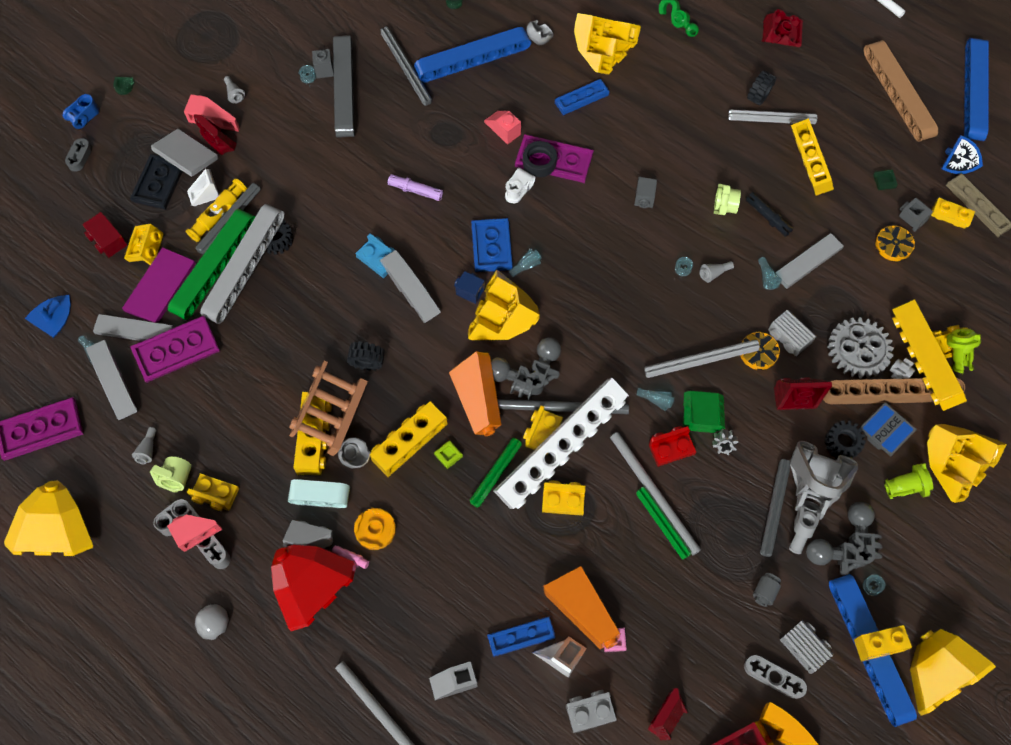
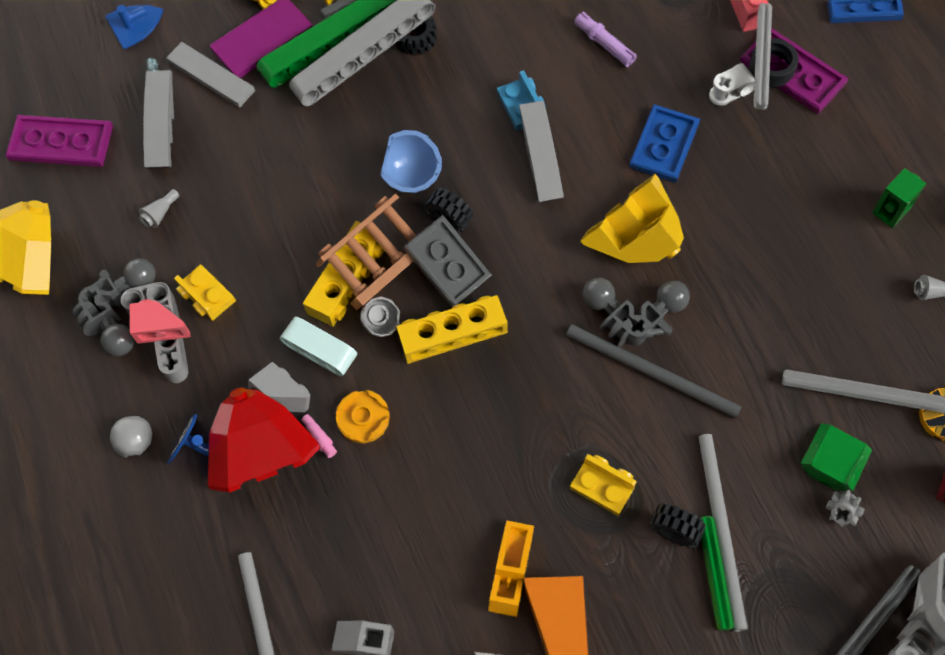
camera: 30 degrees right, 0 degrees up
(165, 555) = (106, 293): none -> dark grey piece
(172, 474) = (169, 251): yellowish green piece -> none
(175, 349) = (243, 113): magenta tile -> none
(257, 603) = (194, 442): none -> blue shield
(321, 333) = (411, 162): none -> medium blue cylinder
(382, 392) = (447, 261): none -> dark grey tile
(448, 454) = (490, 368): lime tile -> none
(469, 287) = (612, 181): dark blue brick -> none
(477, 392) = (559, 310): orange slope -> none
(495, 472) = (536, 415): green axle -> none
(506, 490) = (723, 377): white brick -> none
(521, 636) = (470, 626): blue tile -> none
(529, 260) = (700, 180): clear light blue cone -> none
(530, 584) = (511, 568): none -> light orange slope
(532, 158) = (762, 63): none -> light grey axle
(543, 426) = (617, 390): yellow bracket -> none
(625, 503) = (677, 525): none -> black tyre
(645, 192) = (890, 155): dark grey brick -> none
(661, 399) = (788, 419): clear light blue cone -> none
(664, 219) = (898, 198): none -> green brick
(671, 445) = (773, 482): red bracket -> none
(683, 272) = (895, 274): clear light blue bush -> none

